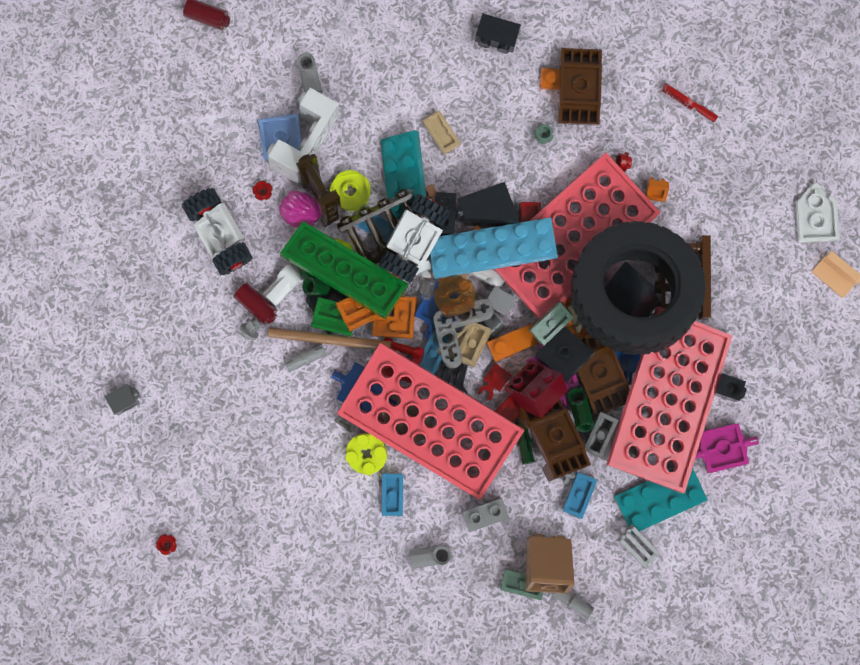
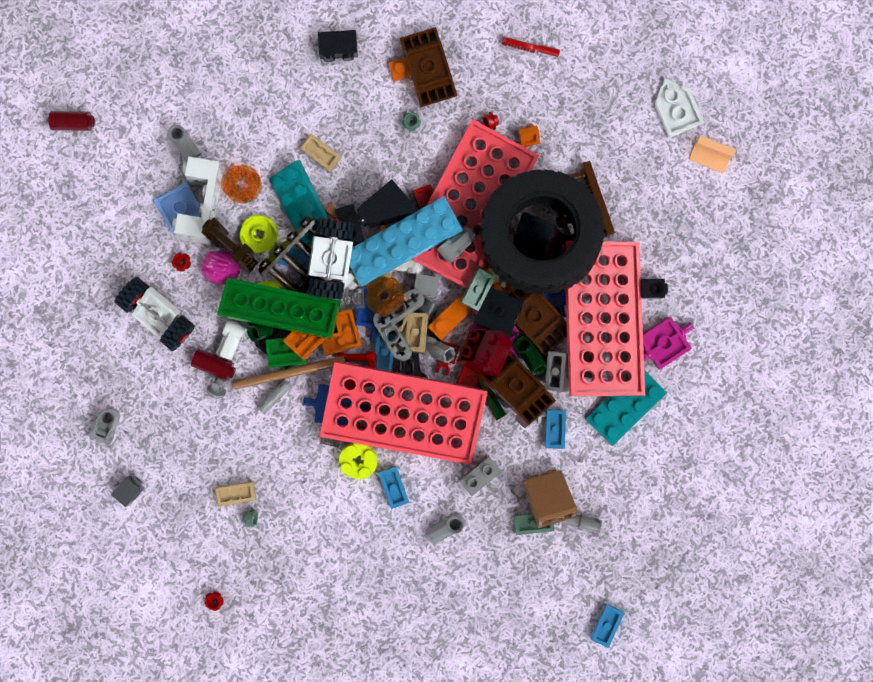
camera: 20 degrees left, 5 degrees up
(121, 329) = (103, 429): none -> light grey piece
(229, 442) = (235, 493): none -> tan plate
(233, 471) = (247, 517): none -> sand green plate
(363, 135) = (231, 185): none -> clear orange plate
(489, 371) = (438, 350): none -> light grey piece
(542, 272) = (453, 247): none -> light grey piece
(649, 558) = (634, 461): light grey tile -> none

